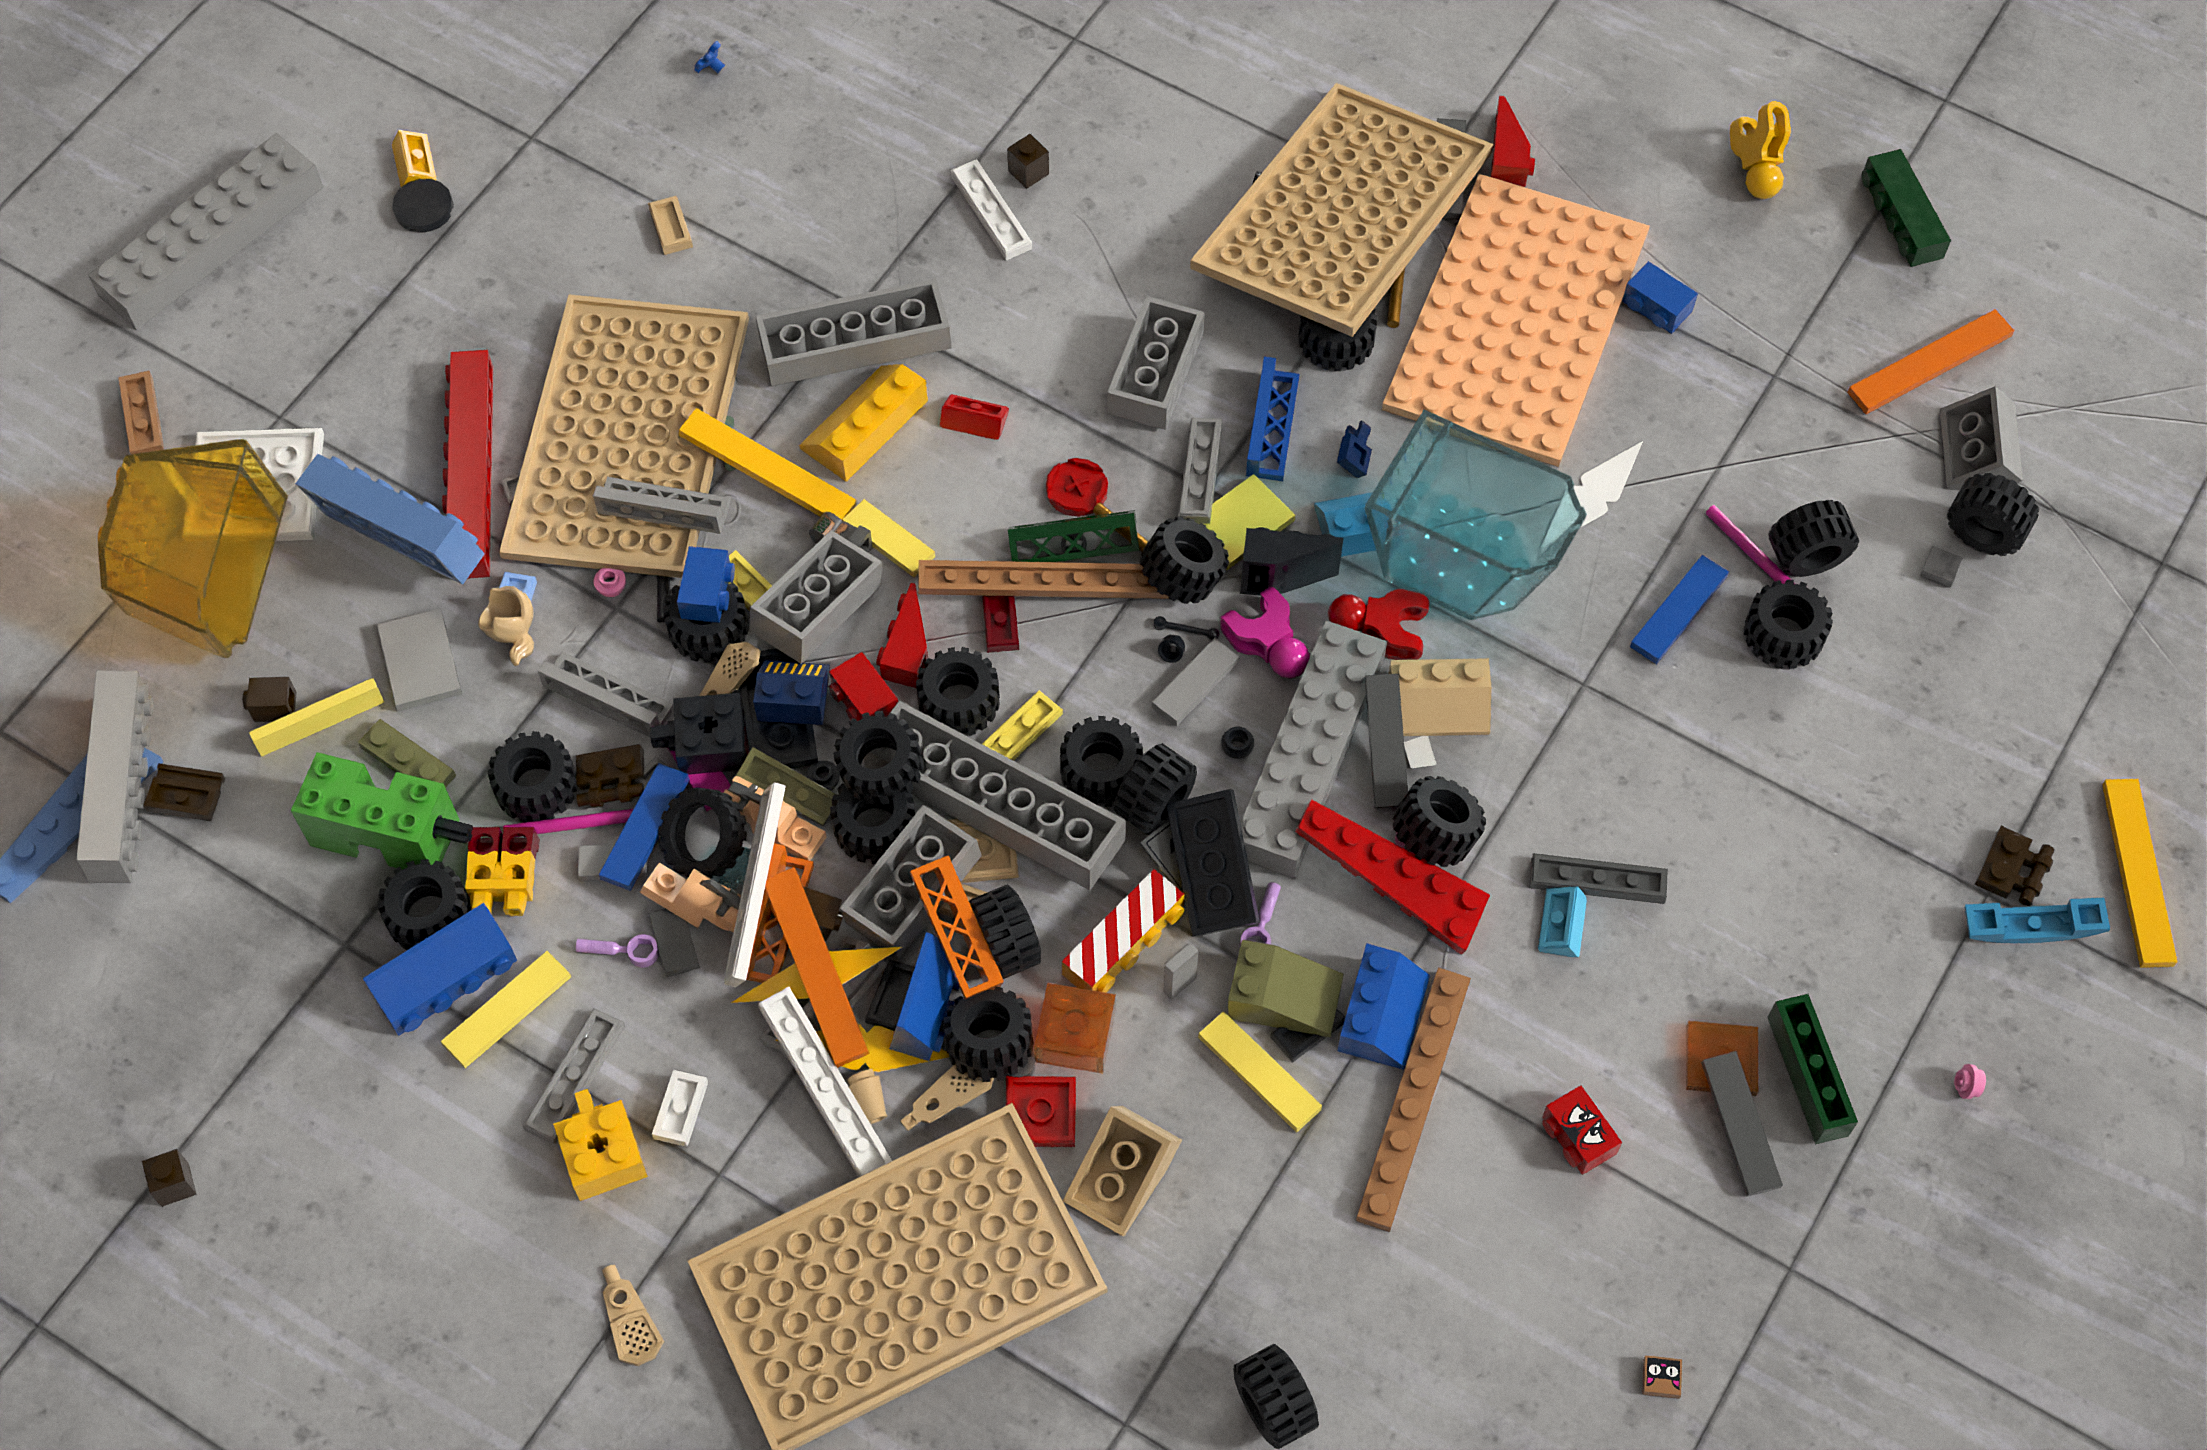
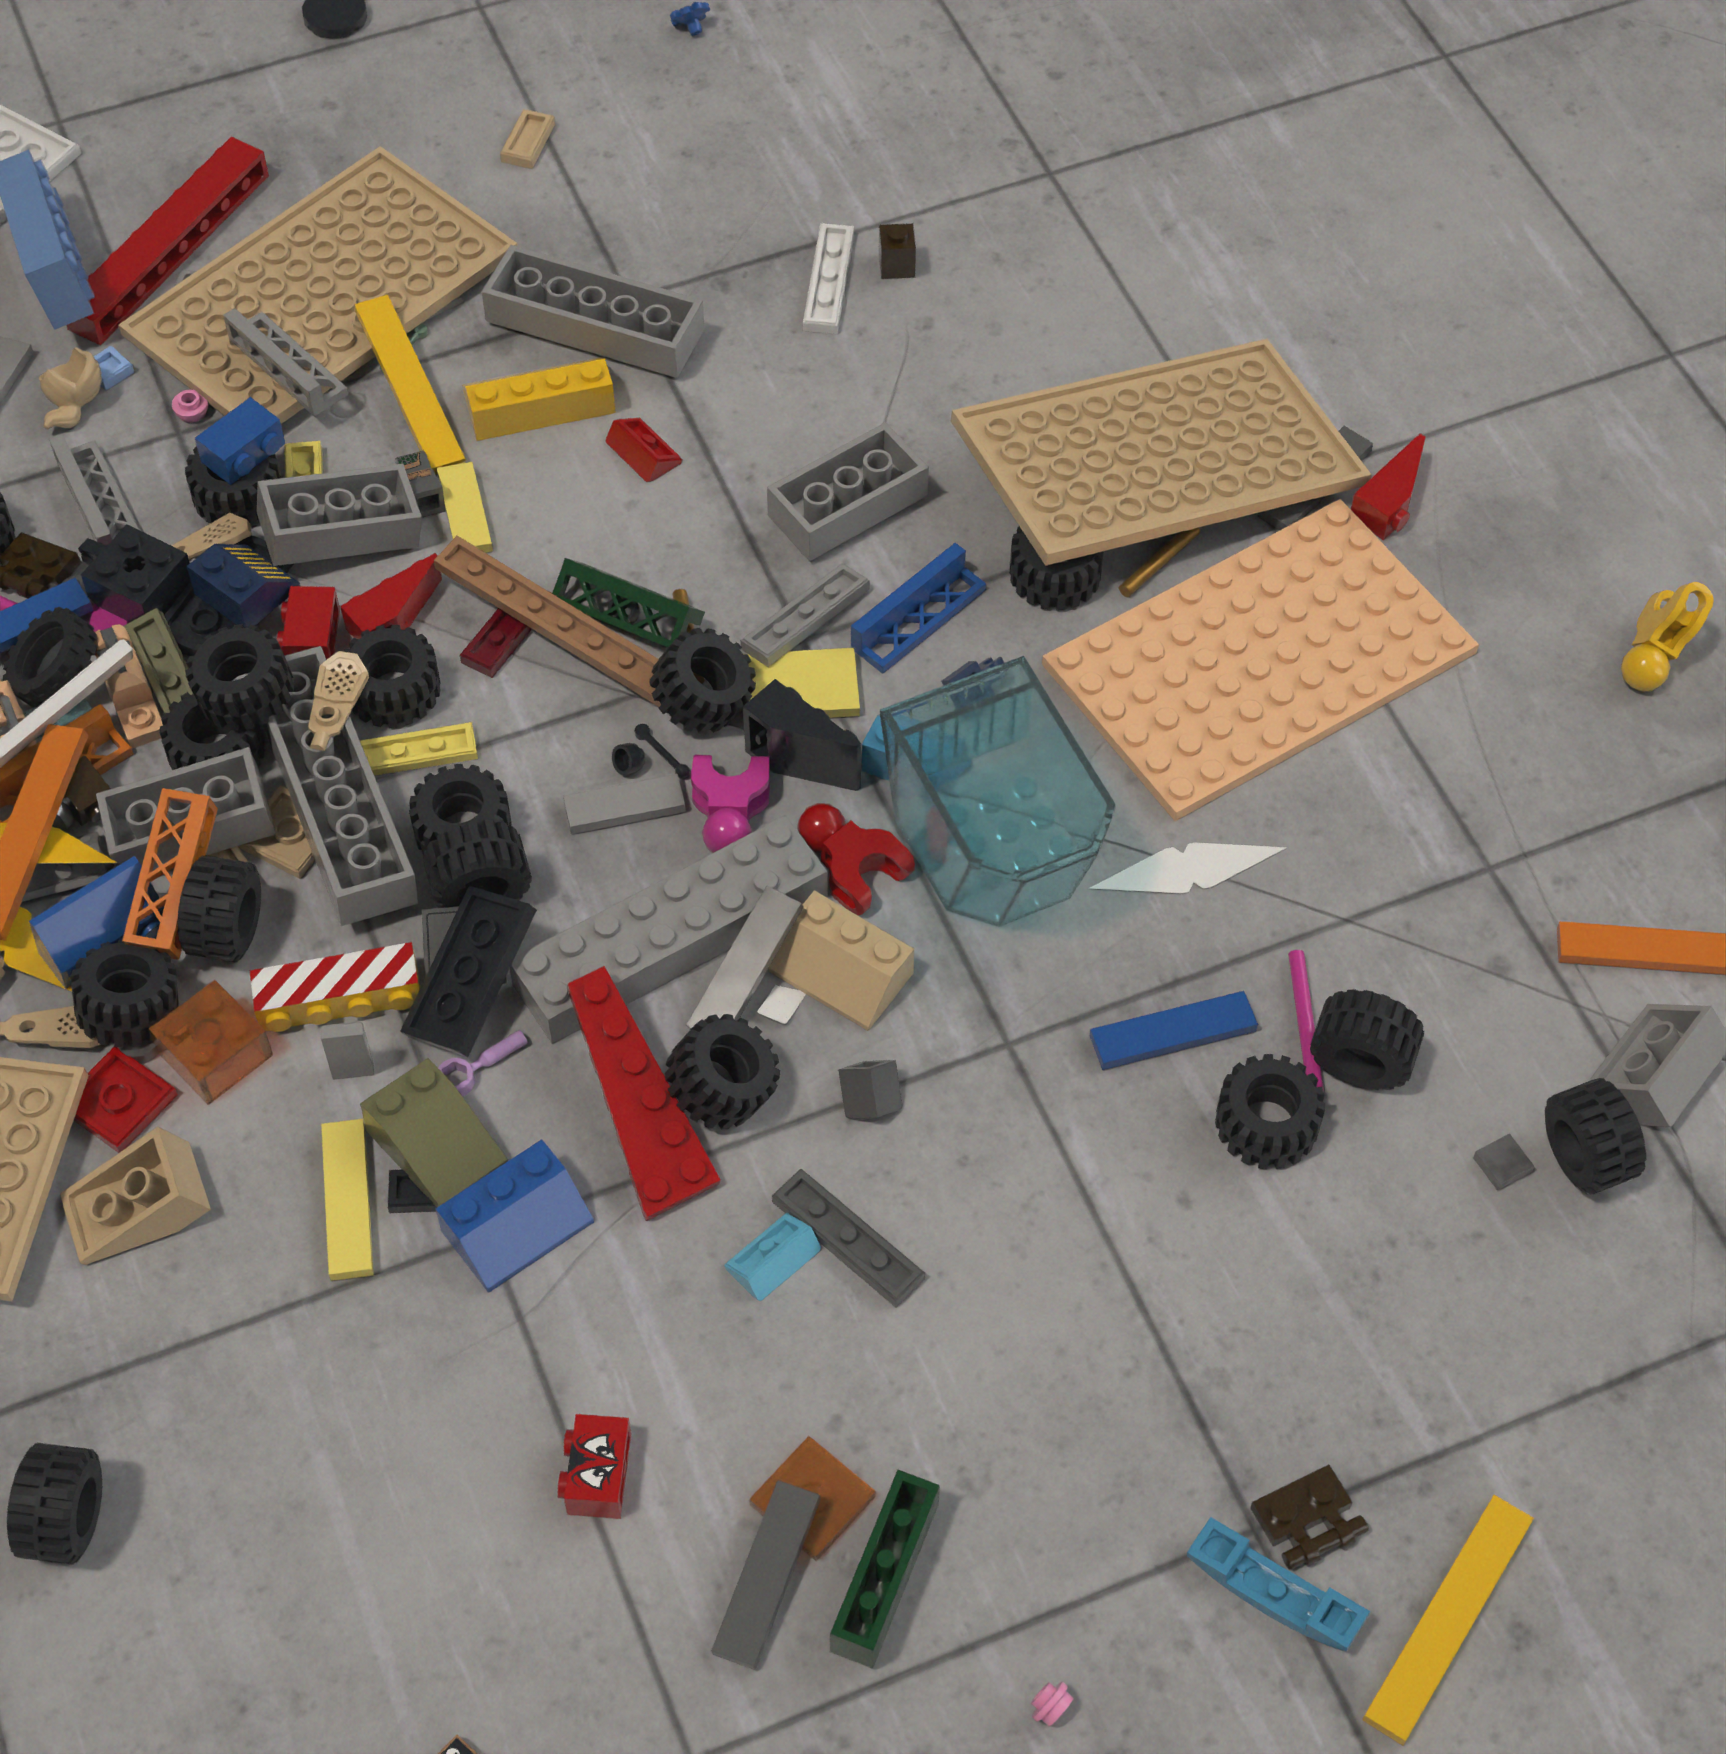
camera: 35 degrees right, 5 degrees down
(949, 736) = (336, 692): none -> tan piece
(1076, 487) = (678, 563): red tile -> none
(1237, 734) = (610, 874): black plate -> none
(1413, 1100) = (466, 1325): medium nougat plate -> none
(1531, 771) = (870, 1089): none -> dark grey panel
(1659, 297) = (1424, 717): blue brick -> none

